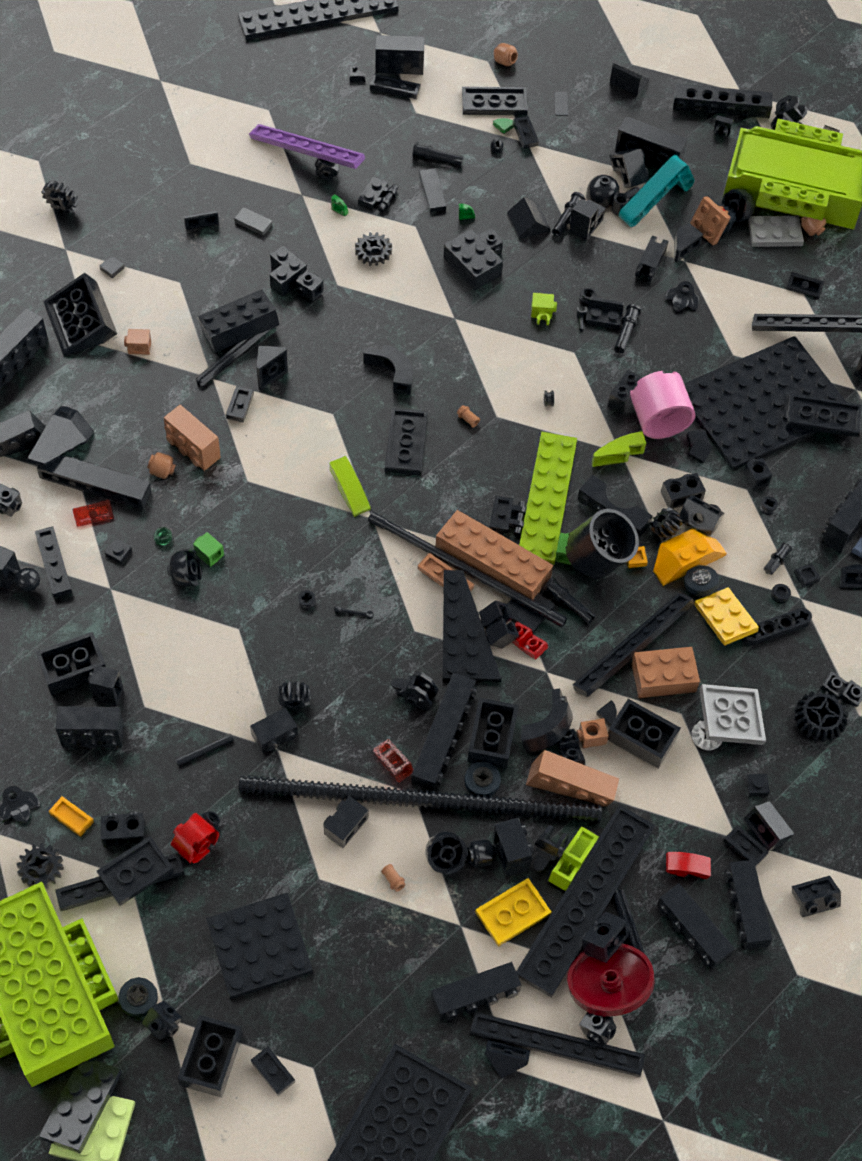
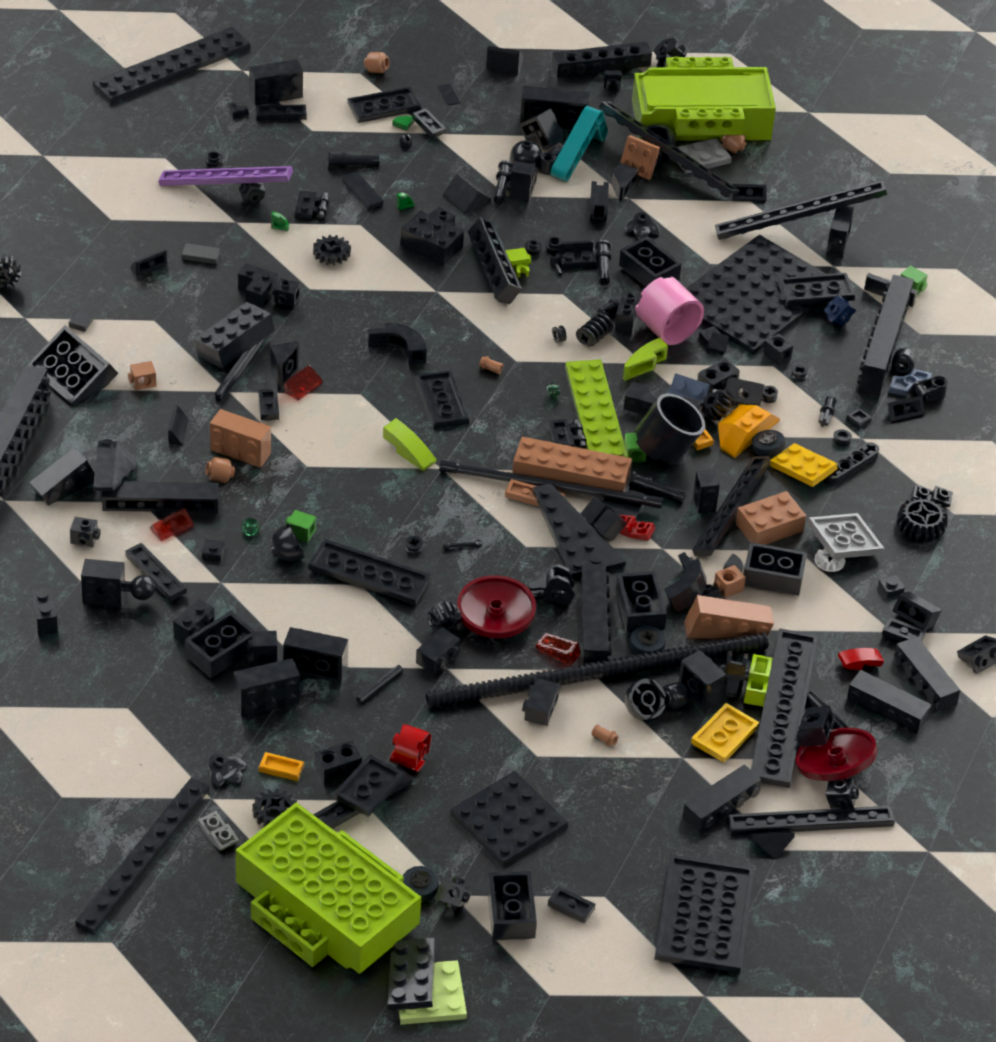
camera: 20 degrees left, 15 degrees down
(60, 628) = (192, 620): none -> black brick
(145, 405) = (177, 426): none -> black slope
(152, 702) = (317, 654): none -> black brick
(250, 619) = (369, 572): none -> black plate
(282, 388) = (302, 383): none -> clear red slope
(310, 122) = (213, 158): none -> black plate
(349, 697) = (496, 606): none -> dark red dish
(515, 461) = (553, 390): none -> clear green plate
(520, 301) = (494, 260): none -> black brick
(564, 296) = (533, 247): none -> black plate
(584, 403) = (595, 329): none -> black piece
(610, 381) = (610, 307): none -> black pin
(612, 623) = (706, 491): none -> black brick
(646, 497) = (688, 387): none -> sand blue bracket
(669, 344) = (648, 262): none -> black brick
(731, 526) = (770, 398): none -> black bush
(742, 220) = (672, 151): none -> black plate
(837, 446) = (839, 310): none -> dark blue brick

